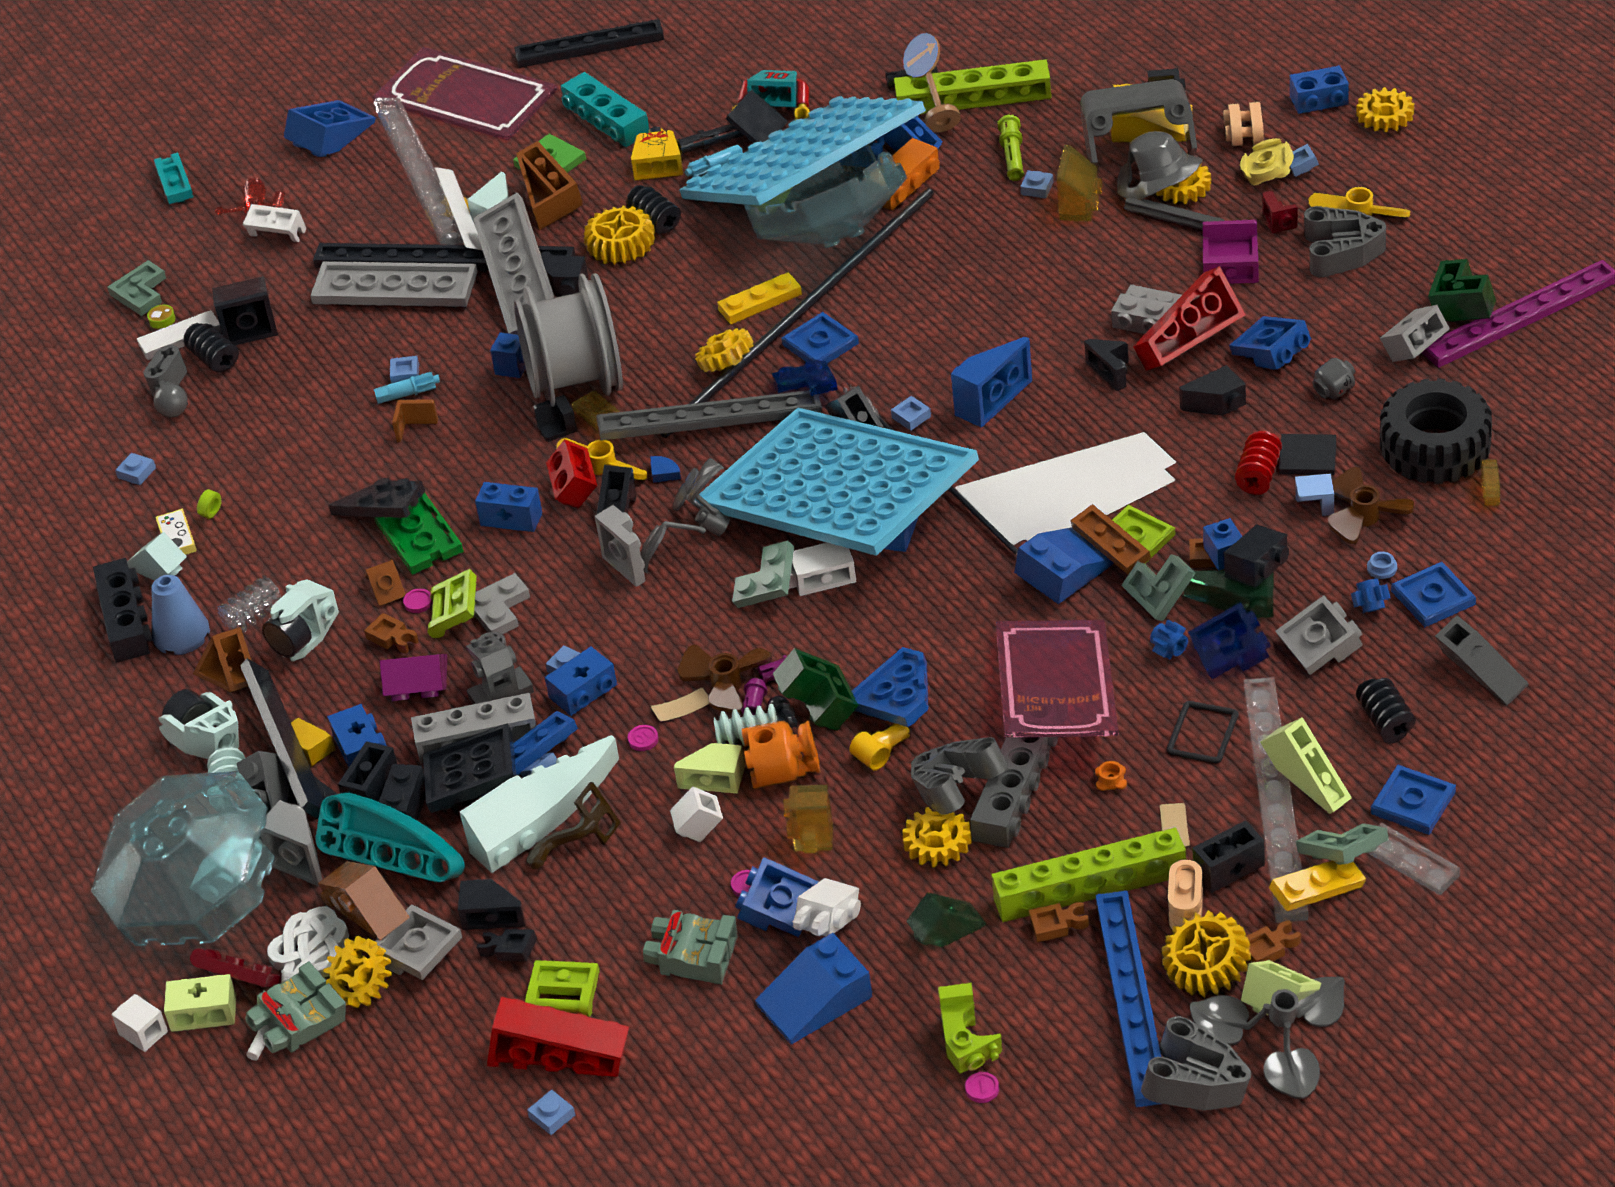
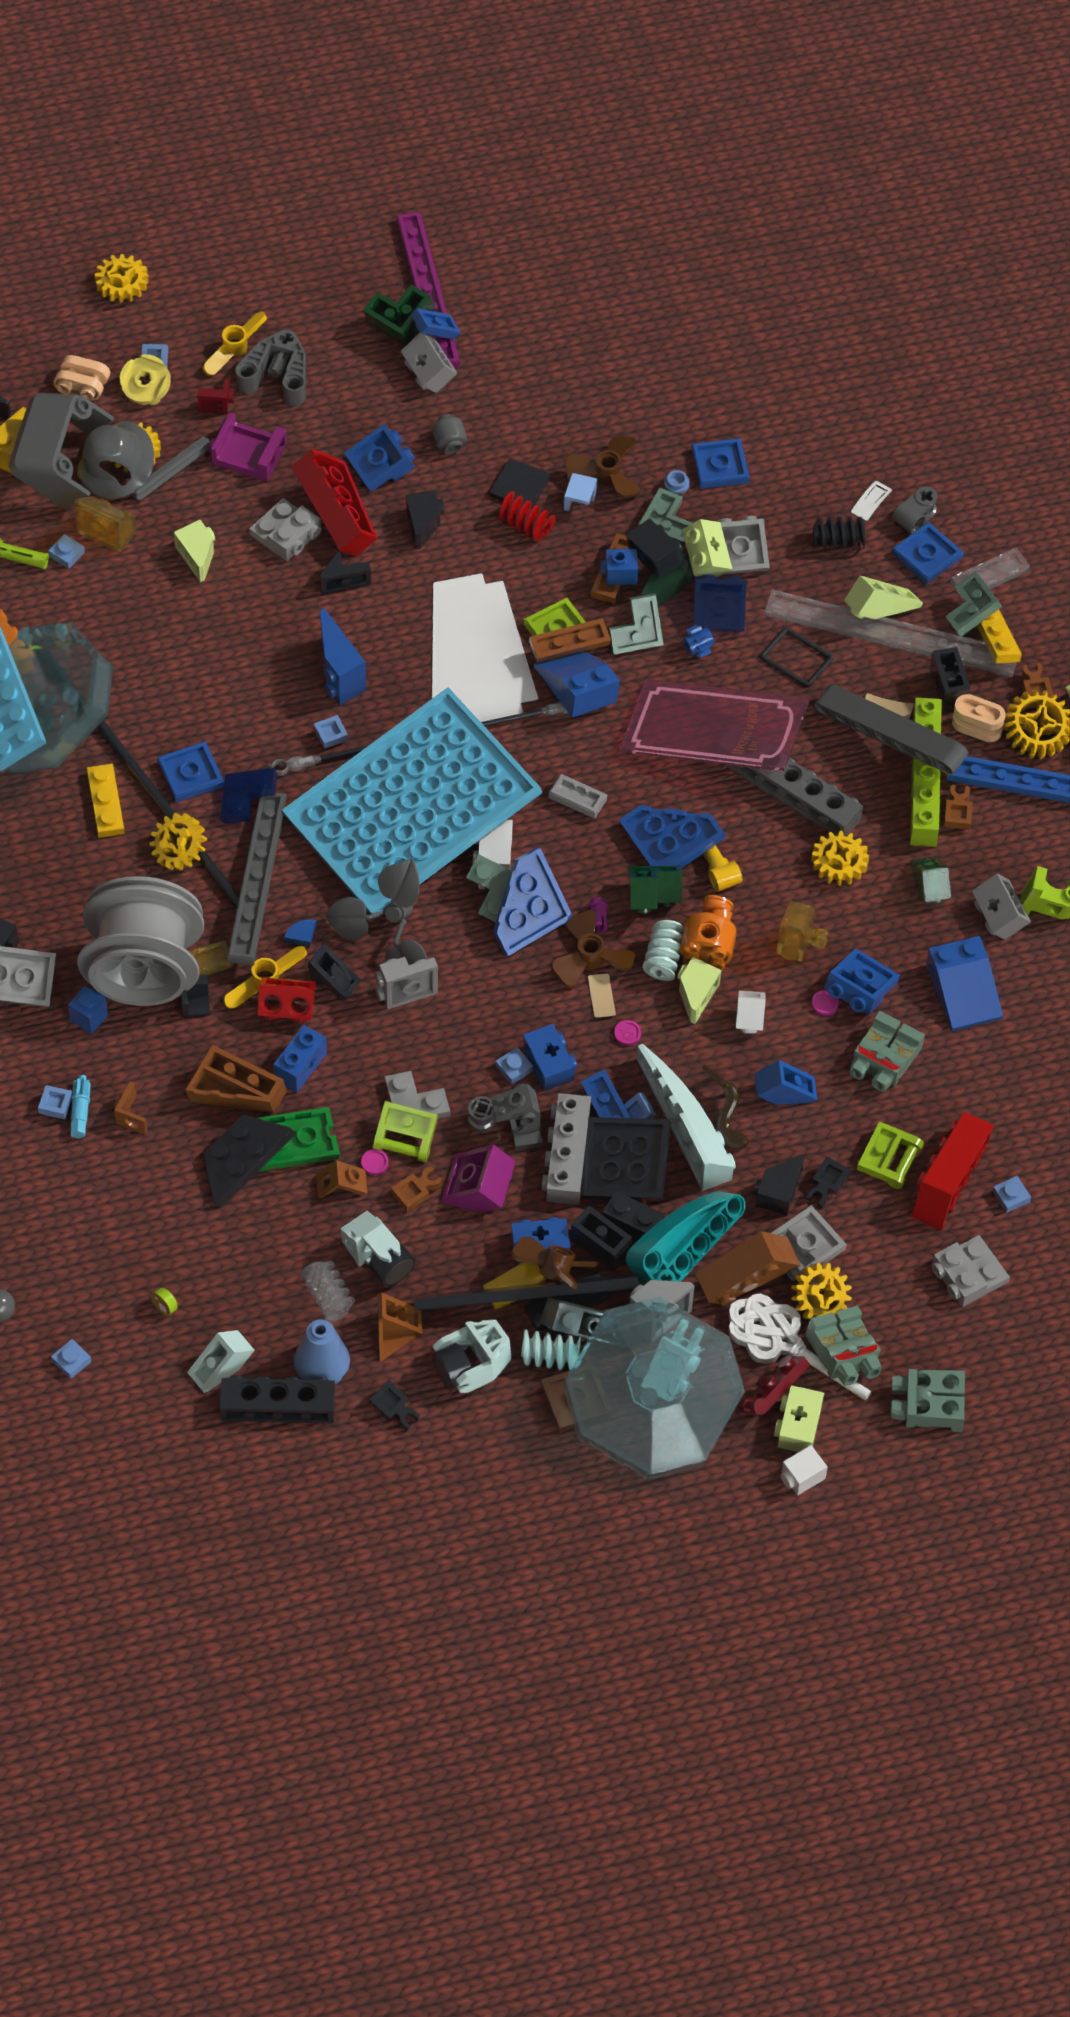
camera: 80 degrees left, 15 degrees up
(139, 688) = (391, 1402): none -> black plate
(177, 529) = (184, 1339): tile -> none
(251, 1095) = (932, 1398): none -> sand green hips
(315, 744) = (555, 1260): none -> reddish brown piece
(435, 1098) = (969, 1270): none -> light grey plate
(461, 469) = (235, 1084): none -> dark orange wedge
(618, 875) = (785, 1084): none -> blue slope
(754, 691) = (623, 939): magenta pin -> none
(755, 604) = (529, 904): none -> plate
(784, 710) = (640, 927): black axle -> none
(826, 907) = (898, 947): white hinge -> none
(854, 407) = (311, 768): black slope -> none
(919, 994) = (1000, 907): none -> light grey brick
(920, 610) = (577, 796): none -> light grey plate
(941, 768) = (787, 825): dark grey connector -> none
(1082, 258) = (196, 547): none -> yellowish green slope
(1110, 776) = (822, 722): orange plate -> none
(1113, 815) = (891, 729): none -> dark grey beam
(1301, 593) = (707, 548): none -> yellowish green brick
(1319, 89) = (66, 312): blue brick -> none
(1324, 564) = (663, 511): none -> sand green plate
(1370, 595) = (713, 499): blue gear -> none
(1435, 455) = (555, 415): black tyre -> none
(1459, 316) = (435, 323): none -> blue plate
(1462, 767) = (916, 509): none -> dark grey piece
(1463, 731) = (871, 500): none -> white sticker
(1480, 660) = (815, 458): dark grey slope -> none
(1490, 482) = (621, 381): clear yellow beam -> none

